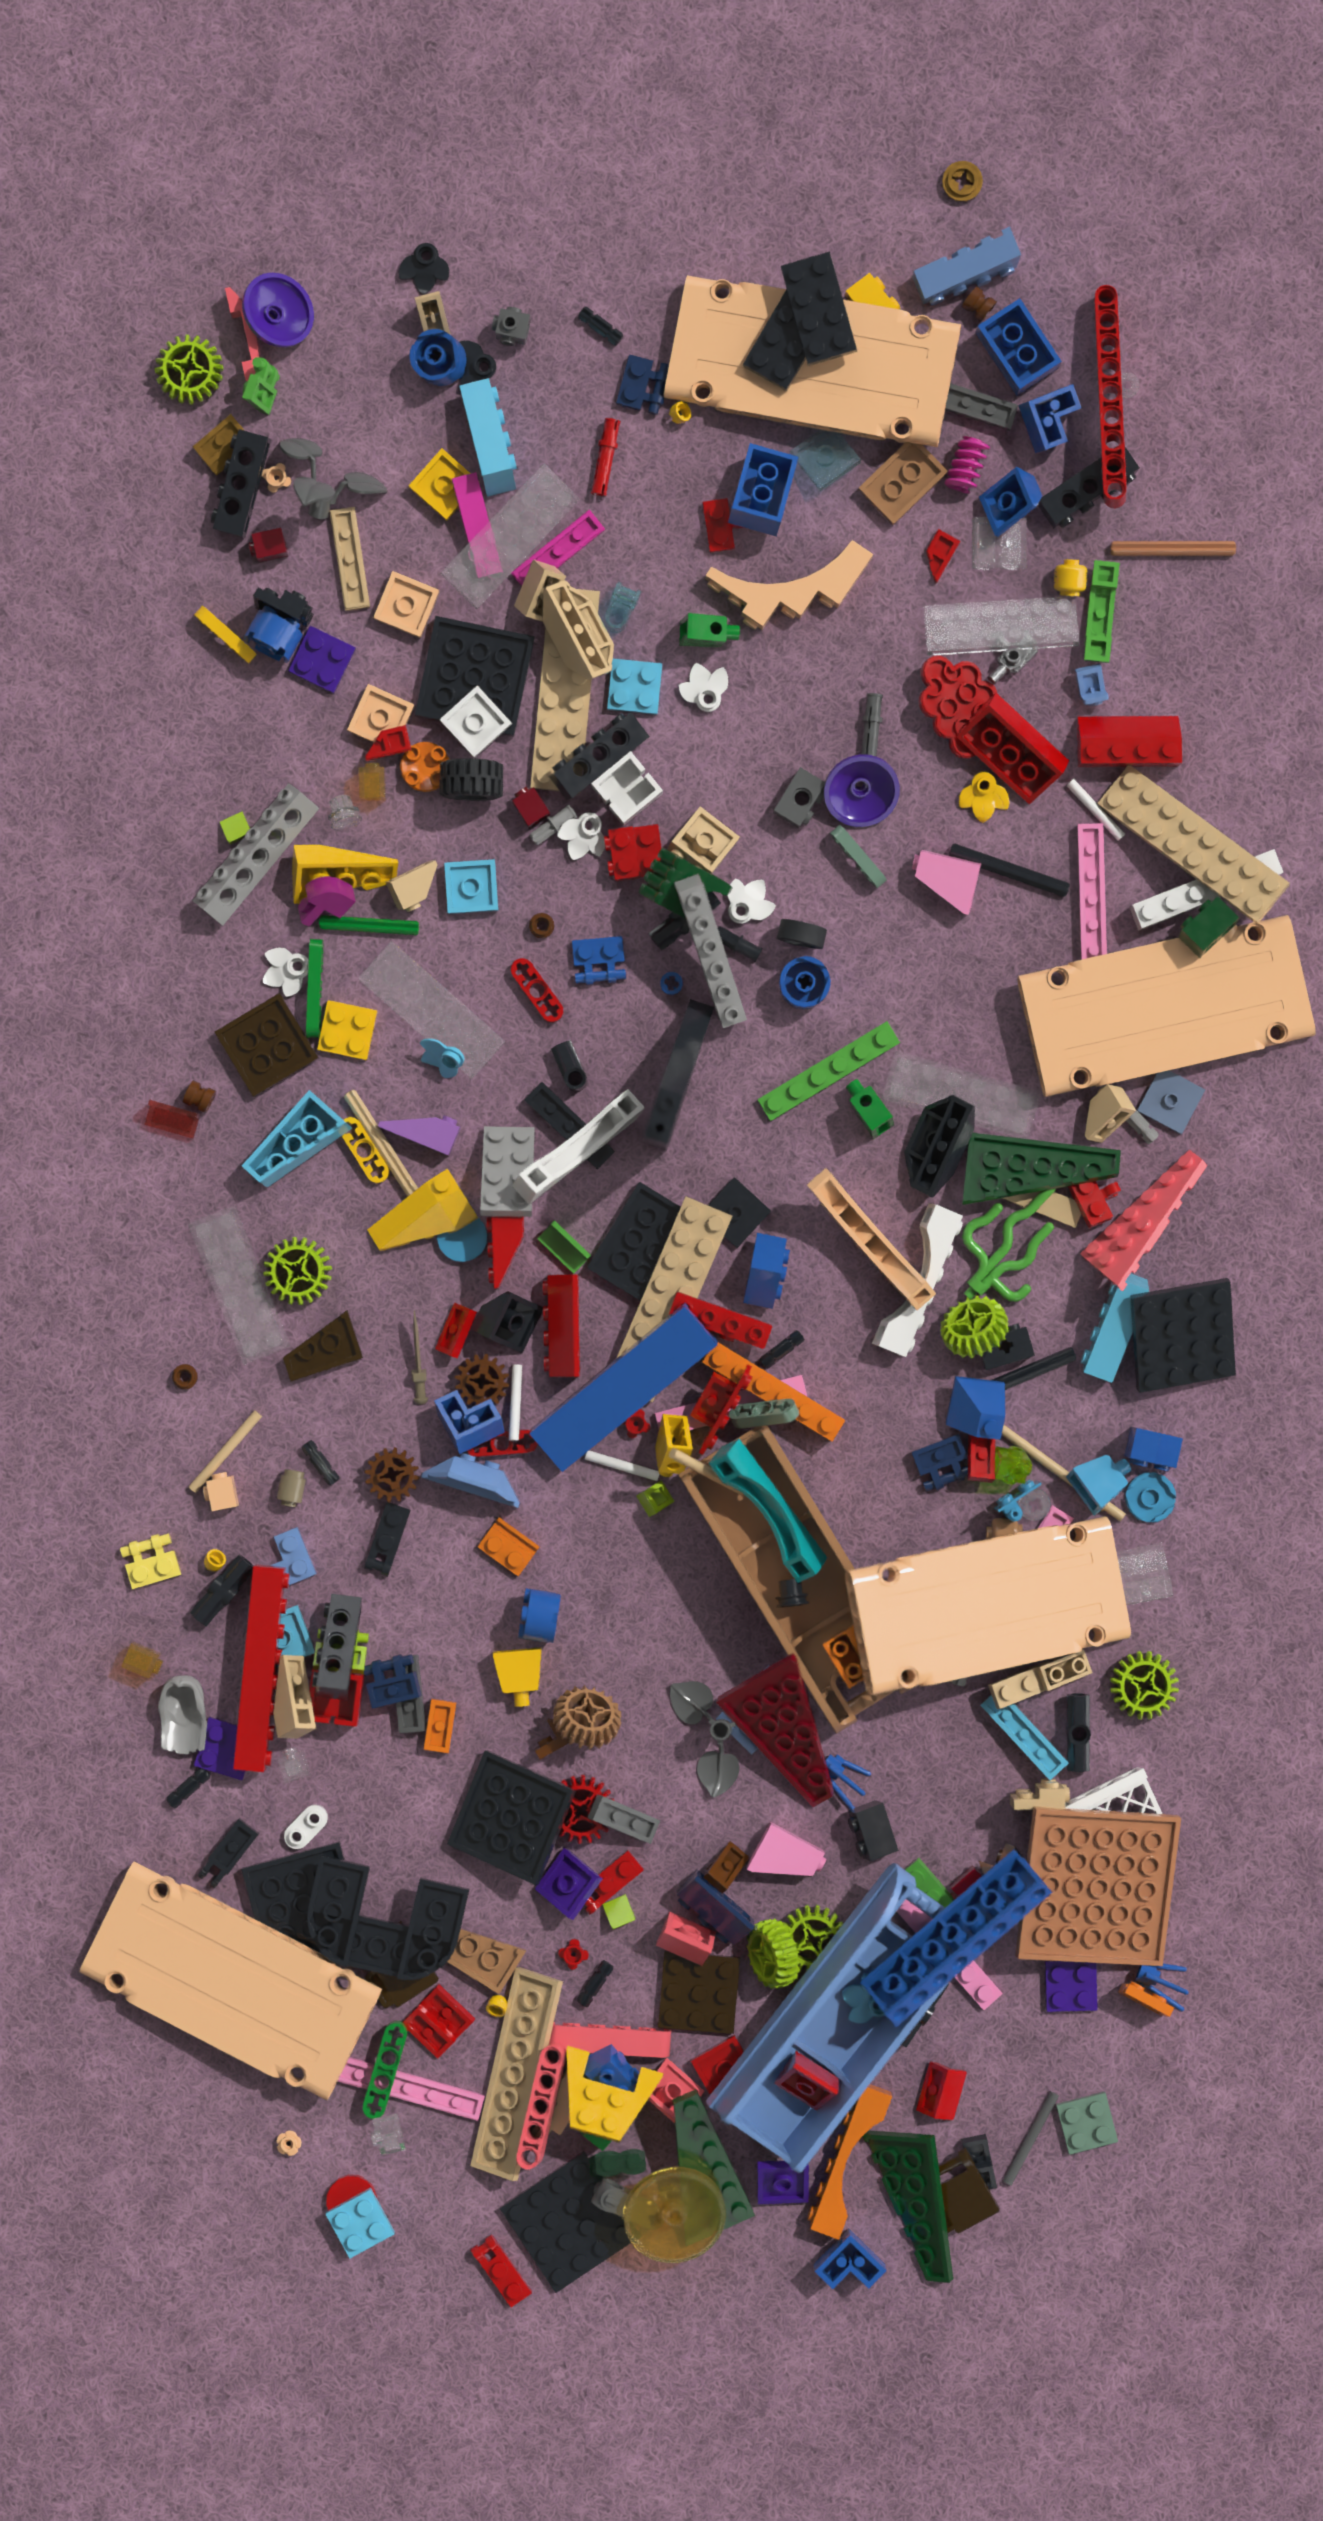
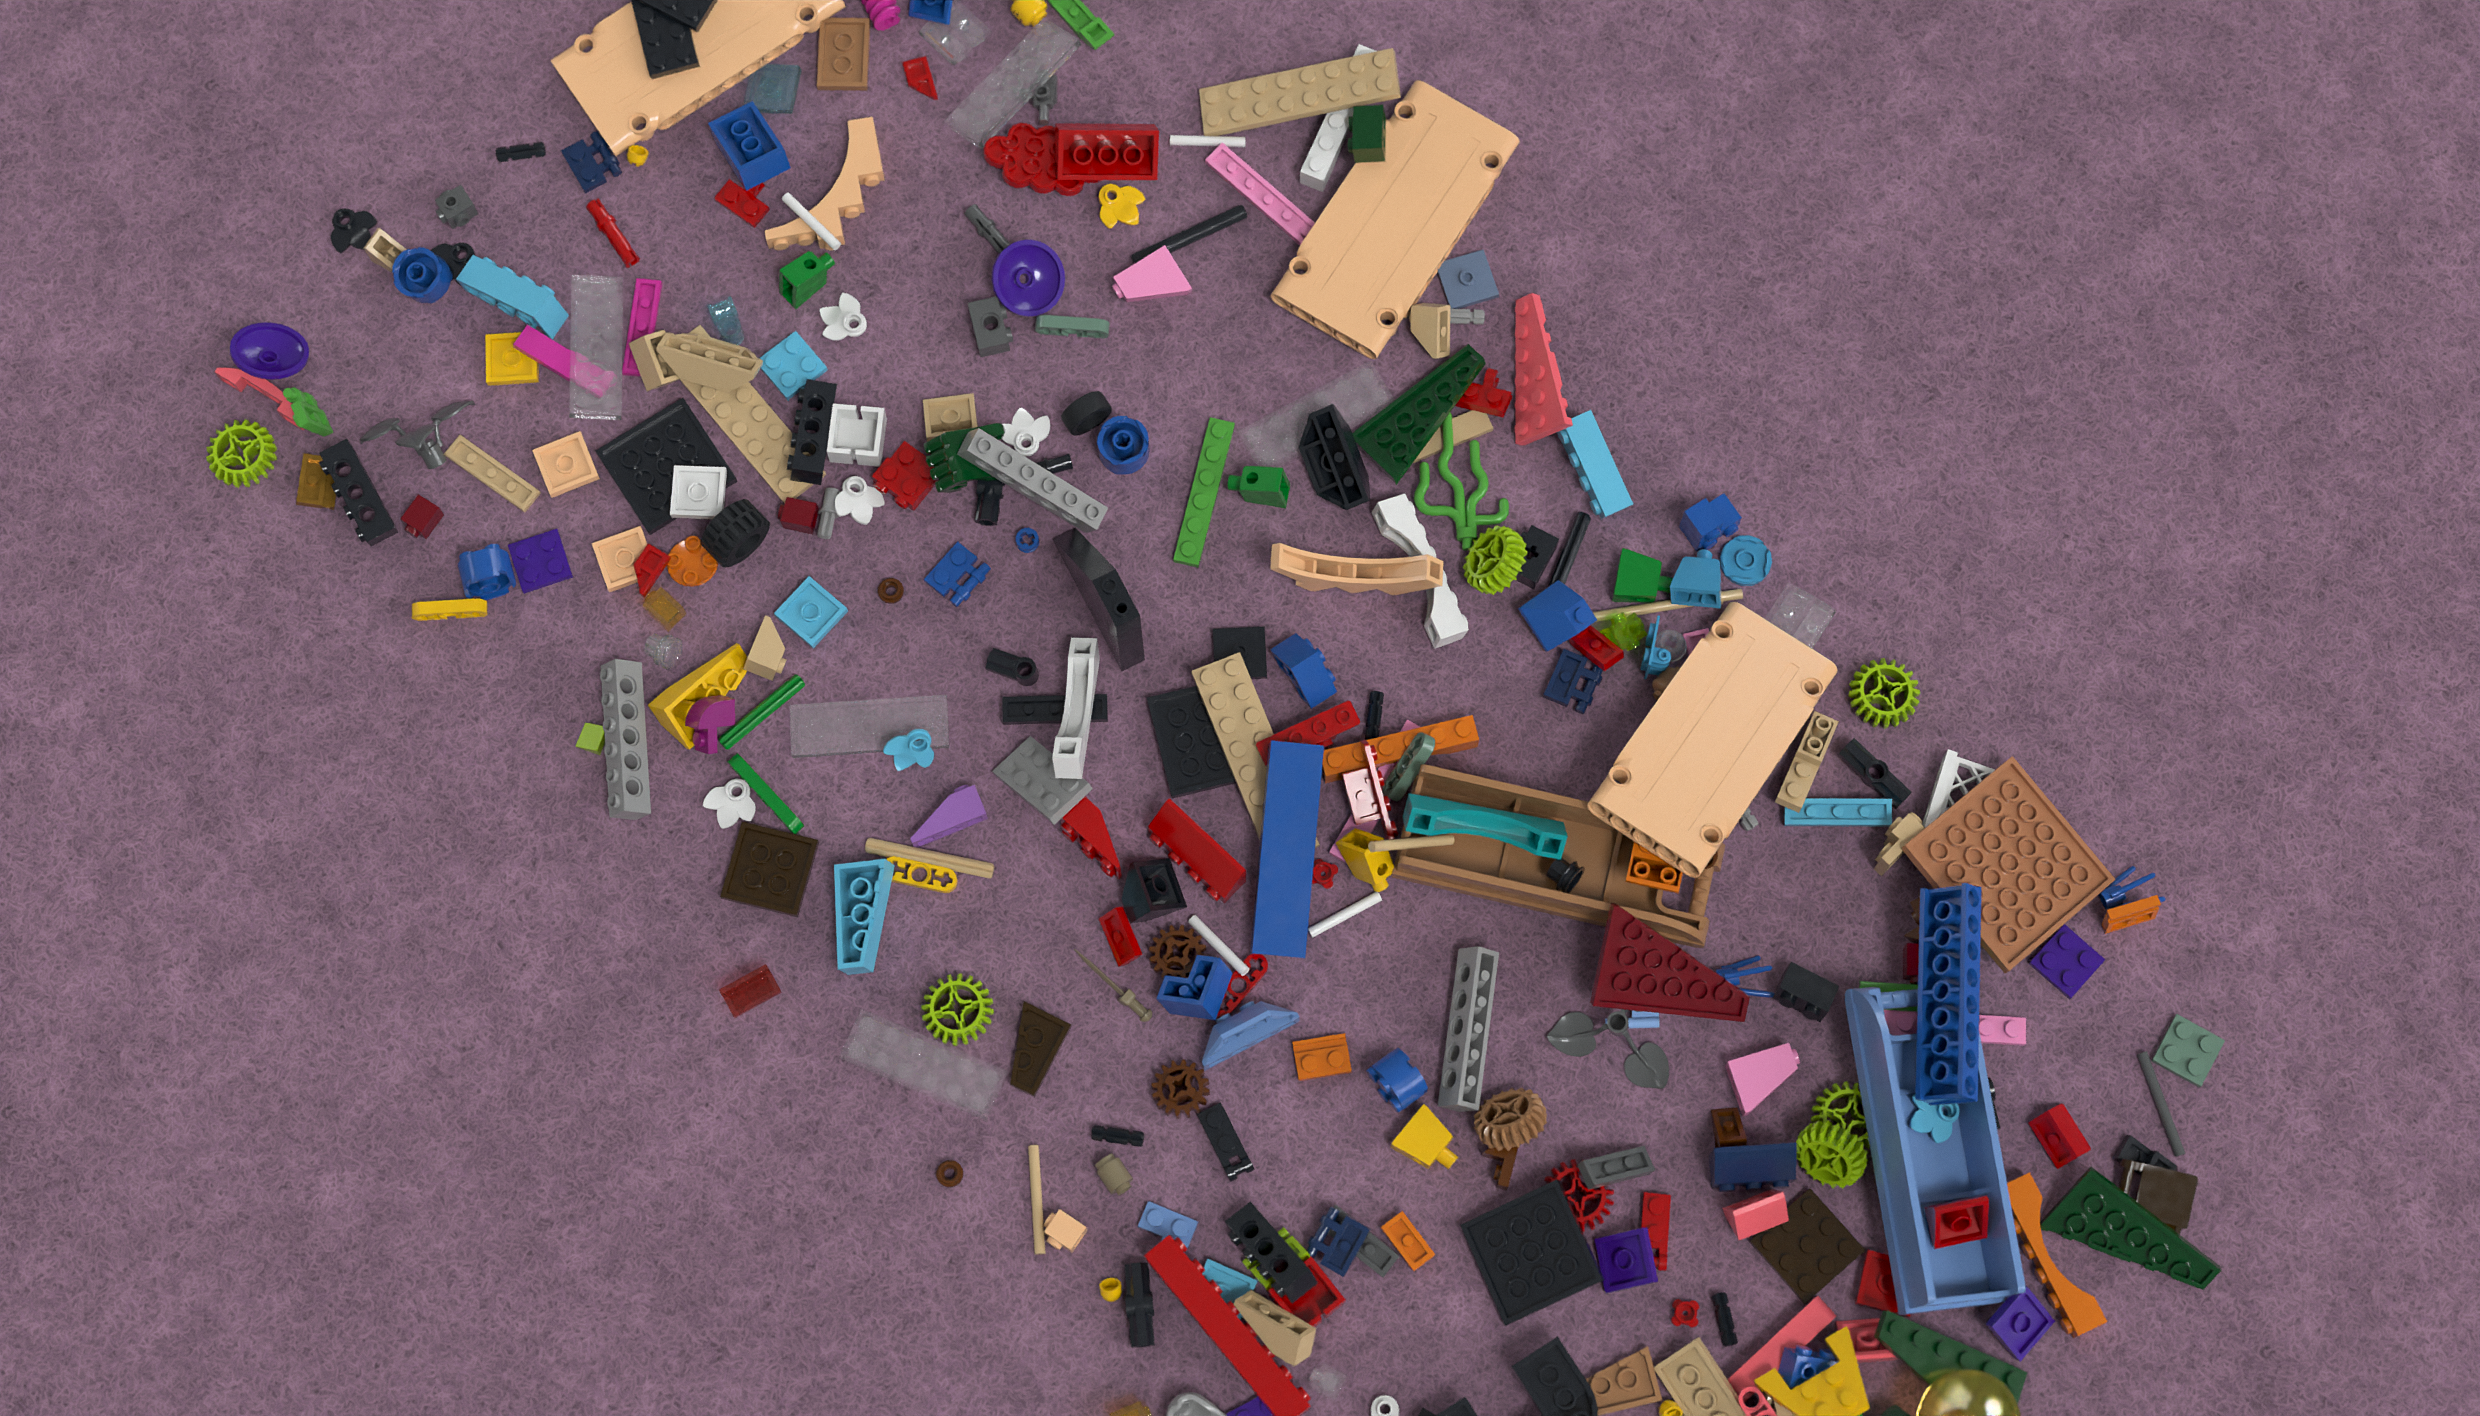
camera: 45 degrees left, 15 degrees down
(154, 1568) = (1069, 1344): light yellow plate -> none
(199, 1096) = (757, 954): reddish brown wheel -> none
(278, 470) = (380, 461): light nougat plate -> none
(289, 605) = (477, 537): black plate -> none
(347, 1030) = (820, 801): yellow plate -> none
(429, 1211) = (1013, 866): yellow wedge -> none
(465, 1243) = (1056, 865): dark azure tile -> none
(543, 1009) = (928, 629): red beam -> none
(564, 1247) = (1138, 796): bright green panel -> none
(619, 1911) = (1685, 1245): lime slope -> none
(622, 1629) = (1468, 1029): none -> light grey brick
(655, 1498) = (1393, 914): lime slope -> none
(750, 574) = (811, 221): none -> white bar
(849, 2255) = (2126, 1329): blue brick -> none
(1062, 1437) = (1639, 578): none -> green torso
(1091, 685) = (1117, 62): medium blue bracket -> none
(1129, 741) = (1184, 74): red slope -> none
(1183, 1335) = (1647, 421): black plate -> none

